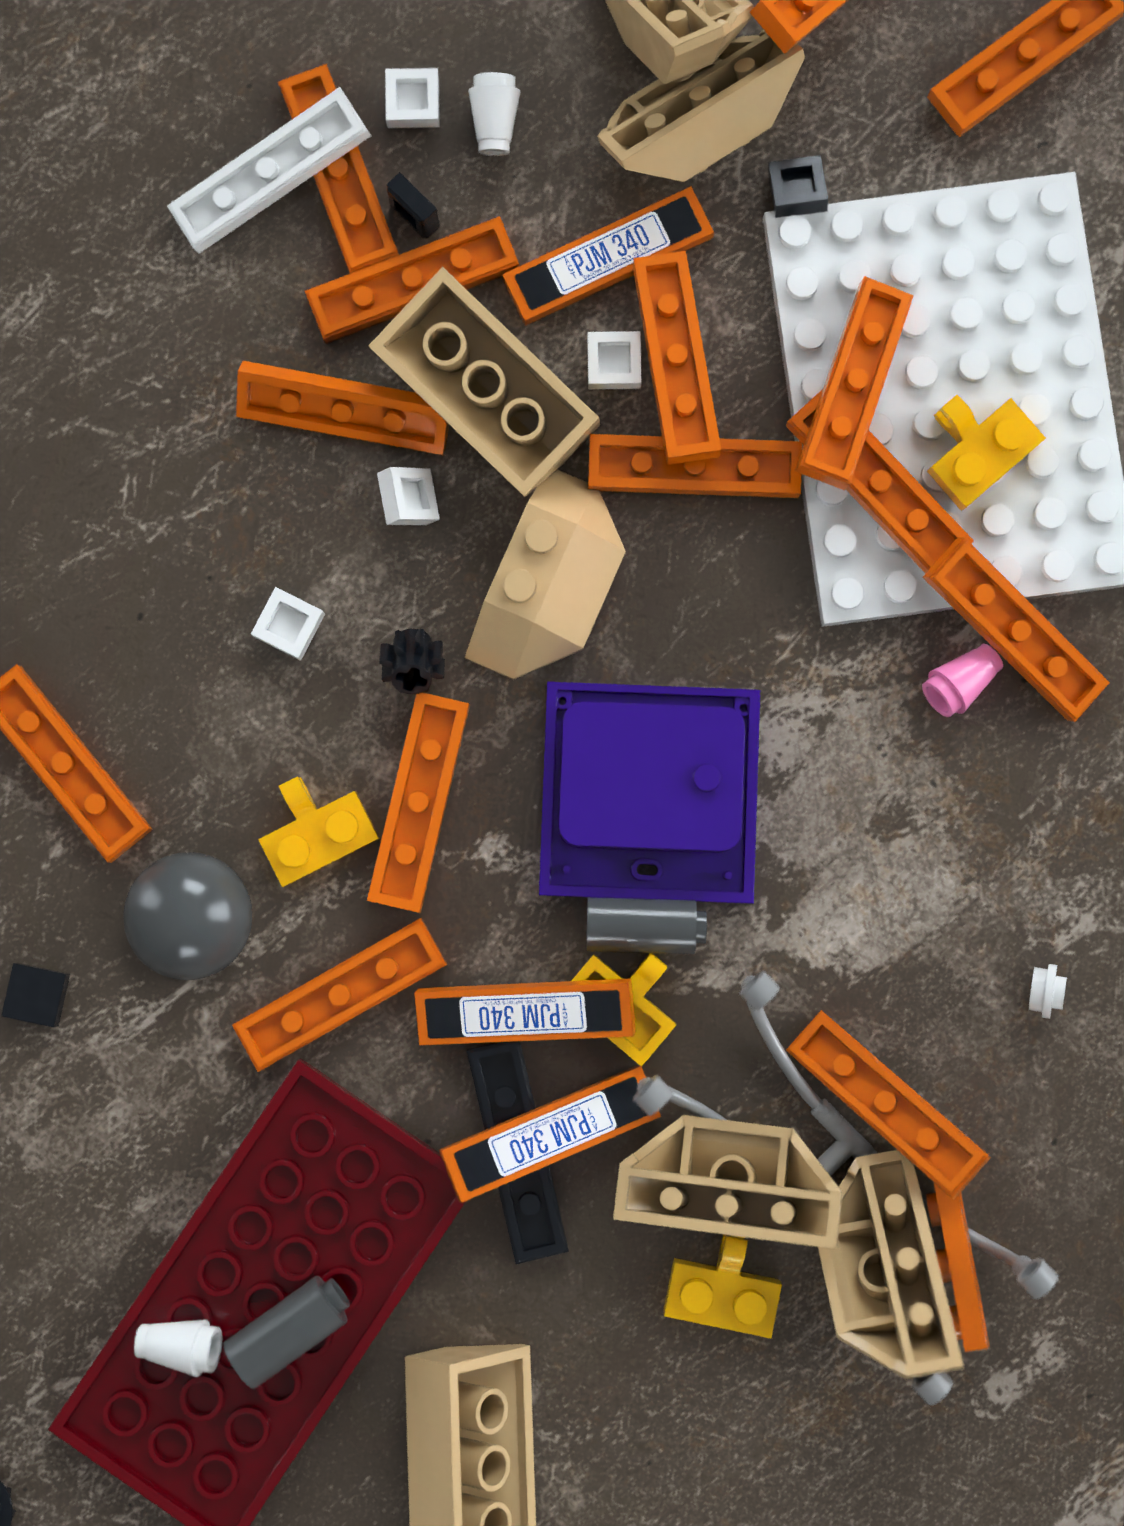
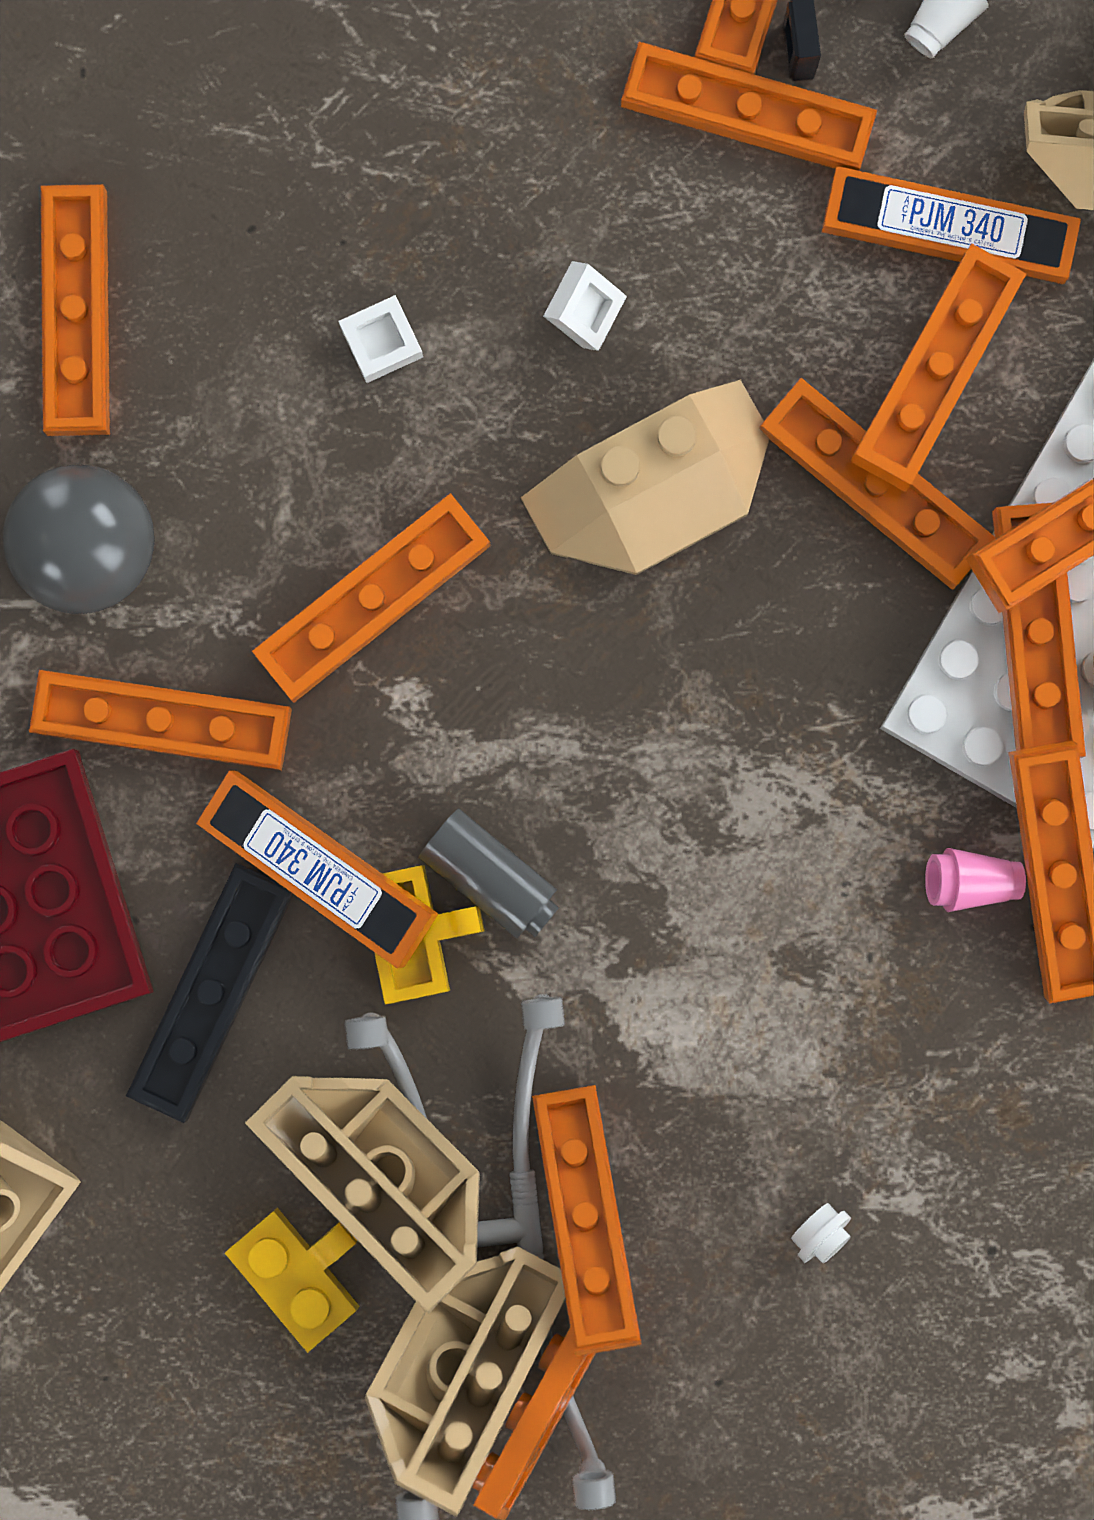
camera: 40 degrees right, 0 degrees up
(316, 834) = (254, 555): yellow plate -> none
(339, 407) = (589, 177): orange plate -> none
(412, 661) = (467, 461): black gear -> none
(485, 383) = (737, 253): tan slope -> none
(545, 1135) = (244, 997): tile -> none
(614, 360) = (878, 326): white plate -> none
(650, 783) = (601, 749): dark purple piece -> none

